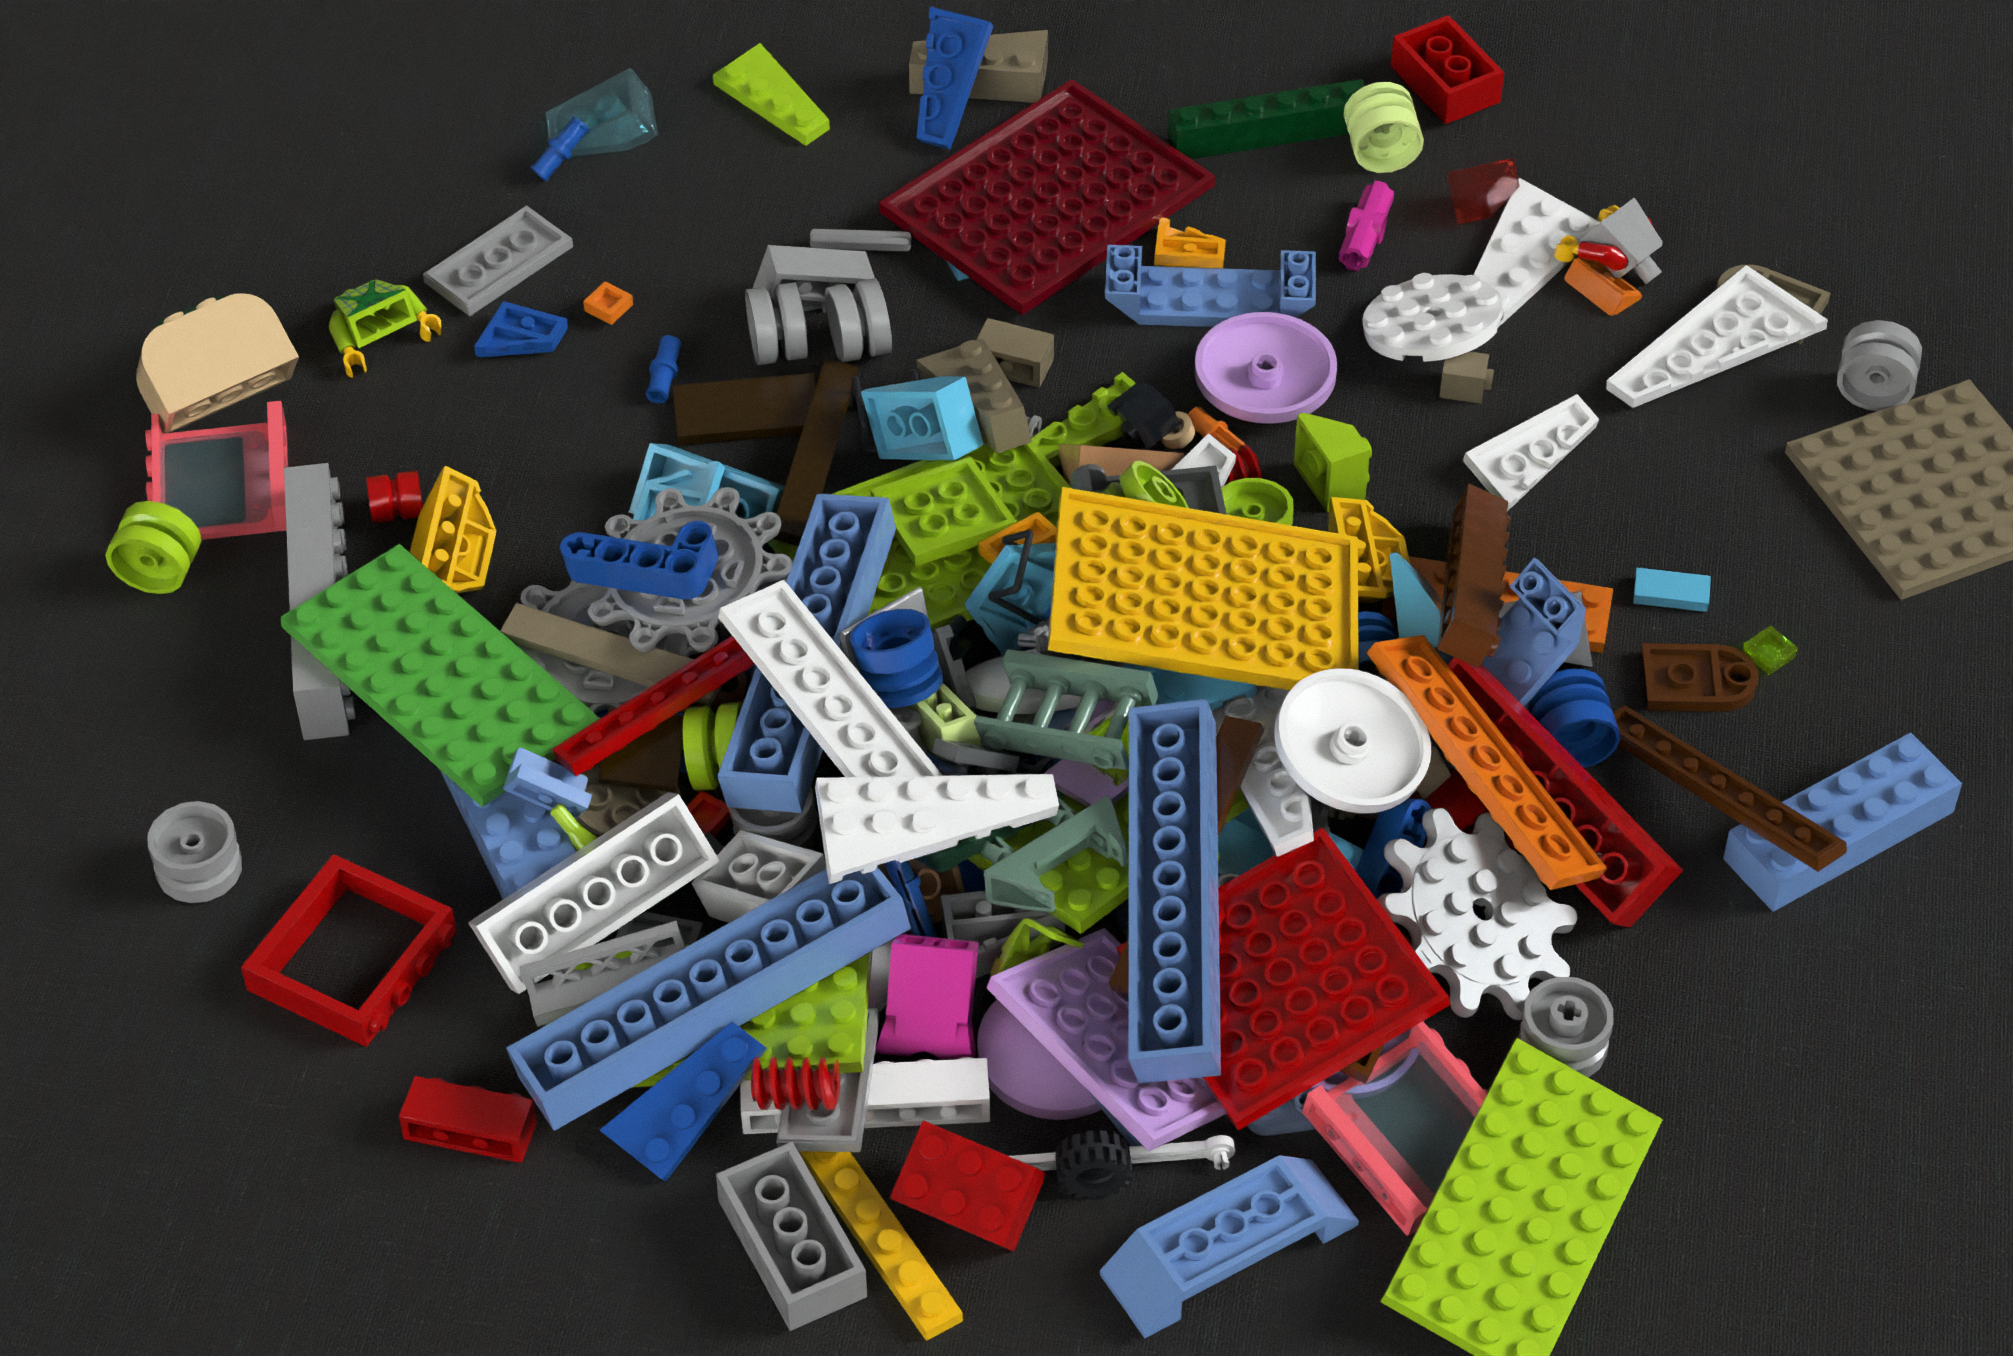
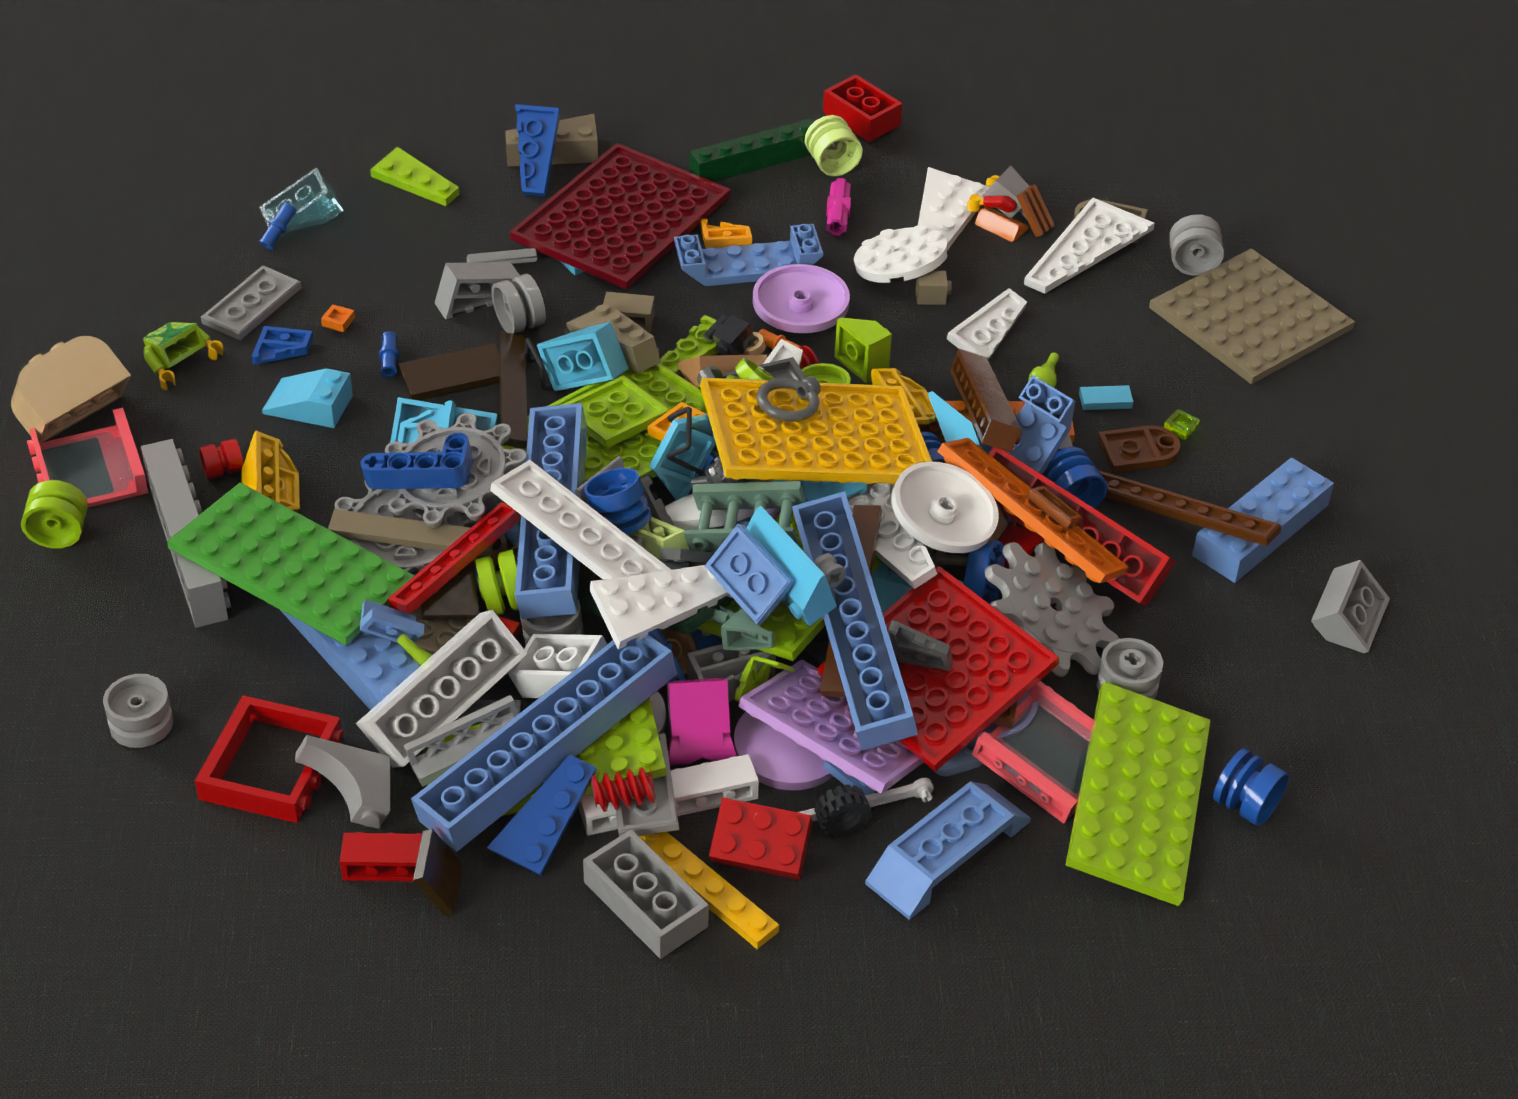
camera: 15 degrees left, 5 degrees down
(454, 993) = (356, 773): none -> light grey arch
(523, 1154) = (438, 872): none -> dark brown tile
(541, 420) = (311, 397): none -> medium azure slope
(782, 323) = (462, 313): light grey wheel -> none
(1037, 803) = (750, 574): none -> medium blue tile
(1090, 805) = (810, 595): none -> medium azure slope
(1147, 817) = (834, 572): none -> light grey wheel
(1206, 527) = (806, 388): none -> dark grey piece
(1254, 949) = (918, 648): none -> dark grey wing
(1482, 189) = (907, 175): clear red slope -> none
(1518, 762) = (1054, 507): none -> dark orange tile
(1585, 546) = (1047, 371): none -> lime piece
(1658, 271) = (1032, 206): none -> dark orange tile
(1684, 1233) = (1254, 788): none -> blue wheel
(1929, 981) = (1351, 607): none -> light grey slope

